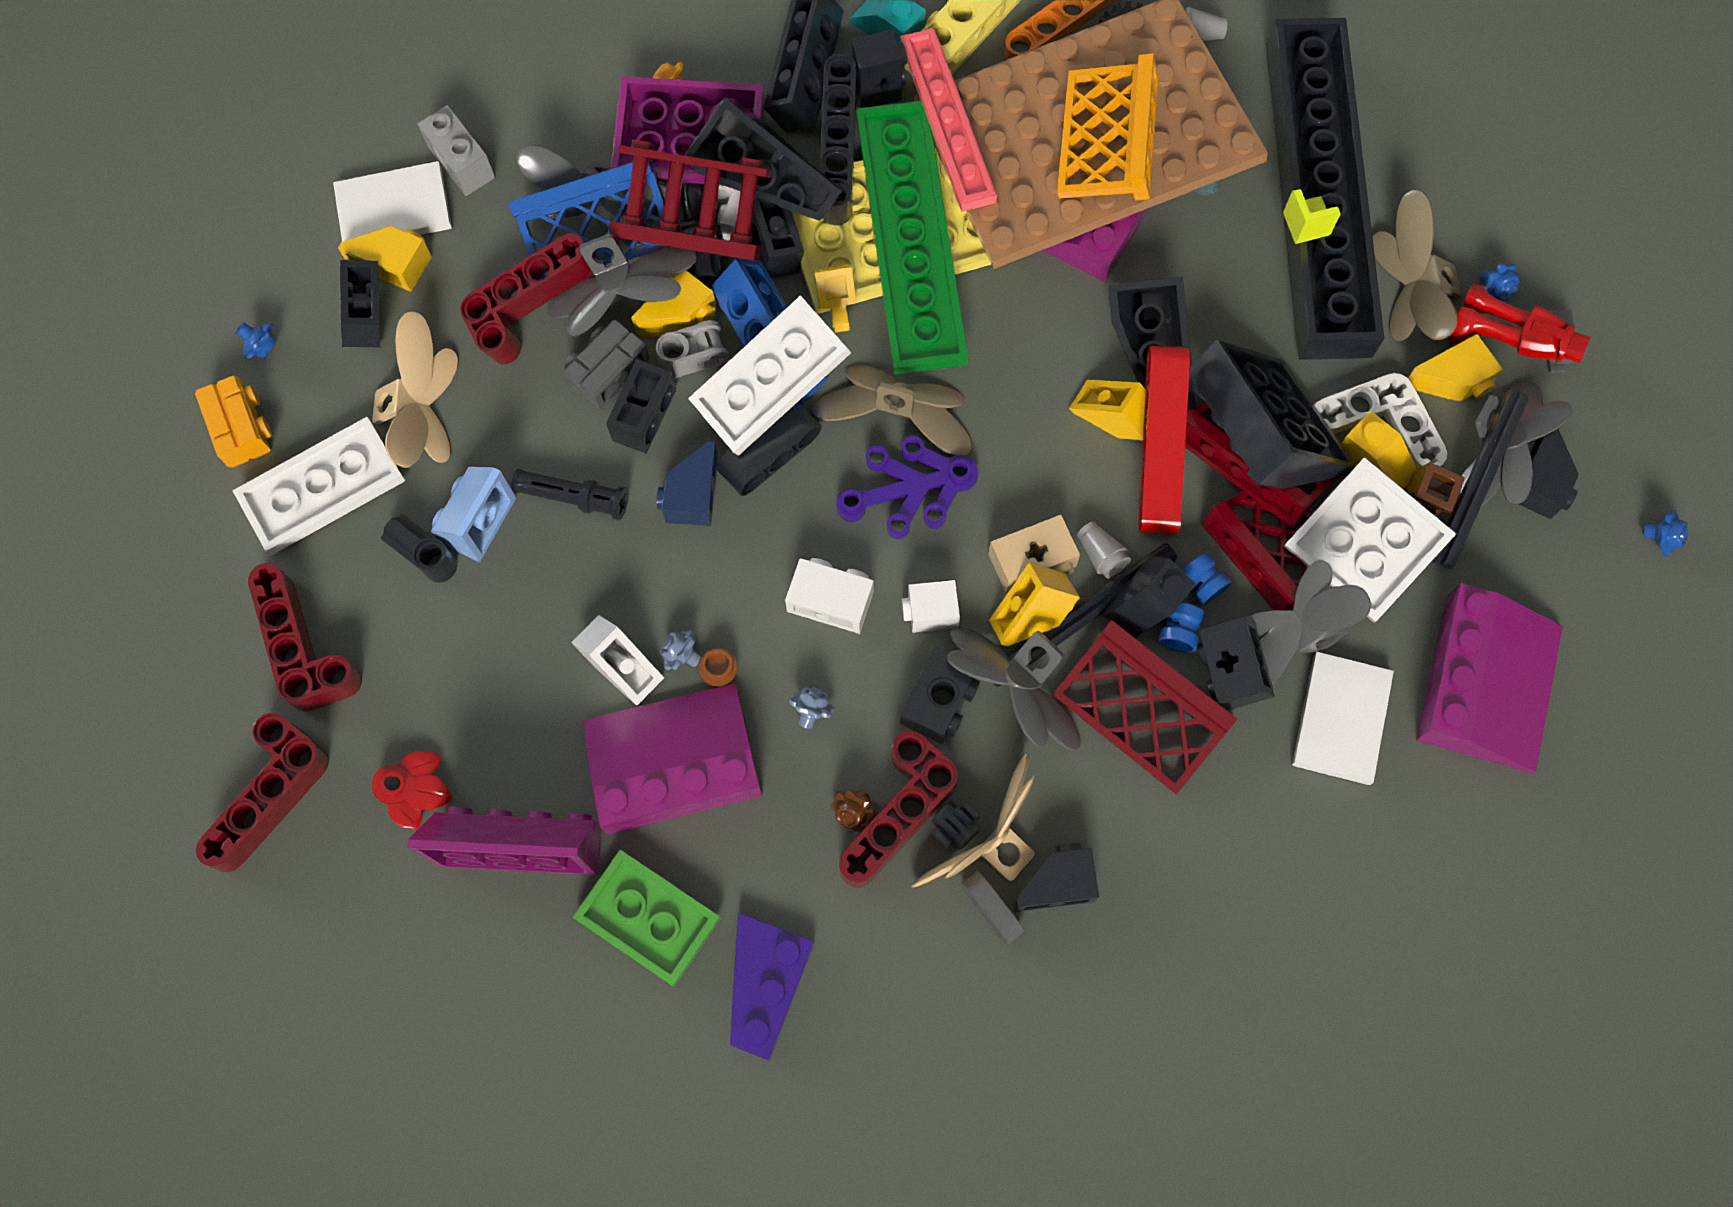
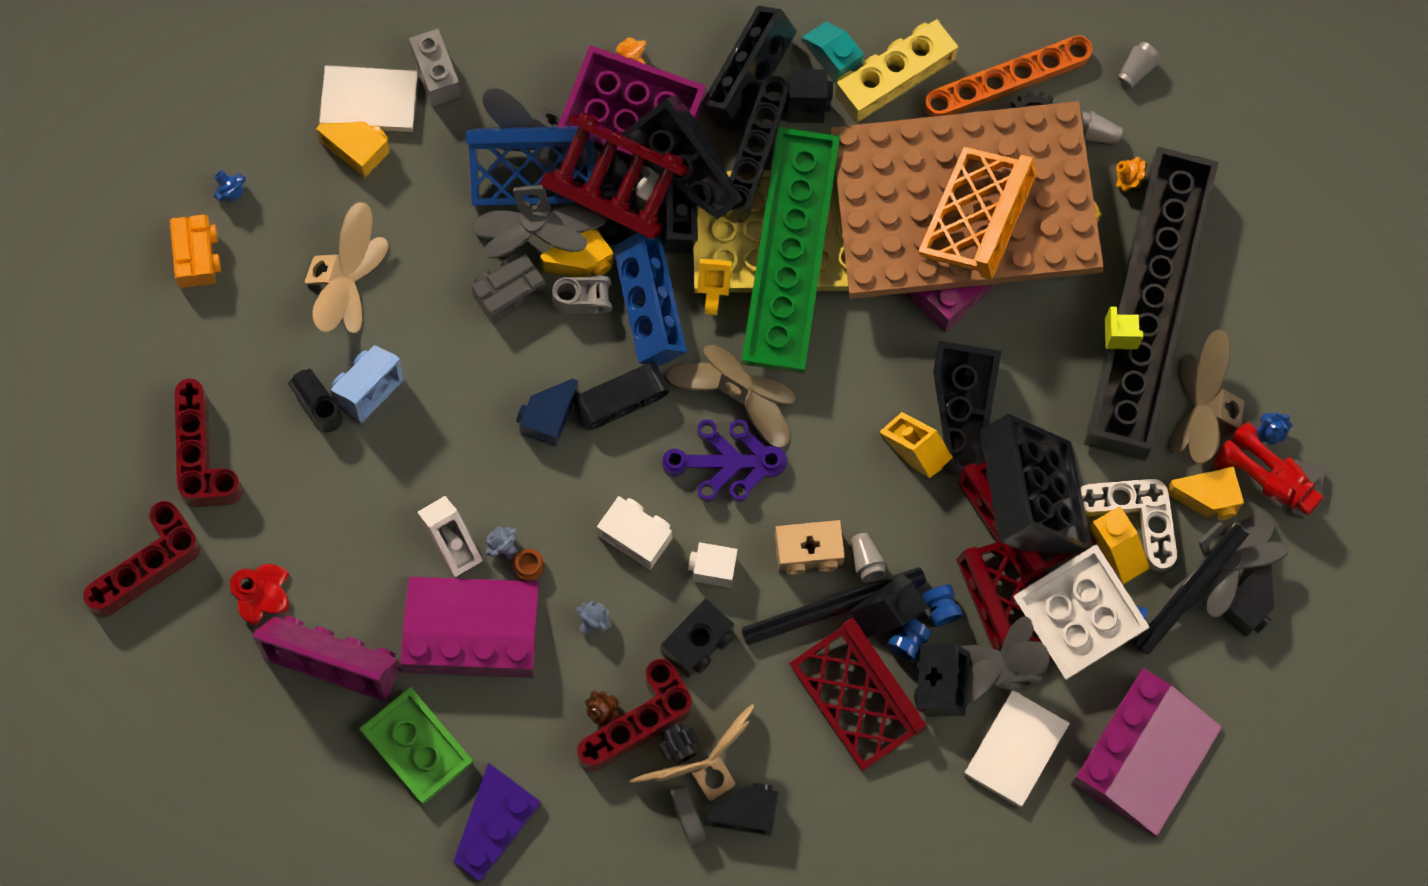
camera: 10 degrees right, 0 degrees up
(318, 486) = (248, 324): white plate -> none
(359, 303) = (321, 181): black brick -> none
(531, 295) = (497, 200): dark red beam -> none
(589, 493) = (461, 398): black pin -> none
(641, 406) = (527, 333): black brick -> none
(769, 375) = (637, 340): white plate -> none
(948, 120) = (851, 159): coral tile -> none
(1033, 604) = (795, 586): yellow slope -> none
(1034, 708) = (768, 669): dark grey piece -> none
(1164, 440) = (941, 483): red beam -> none
(1251, 61) = (1131, 173): none -> light orange plant
(1432, 493) = (1150, 586): reddish brown brick -> none
(1669, 533) = (1335, 676): blue plant -> none

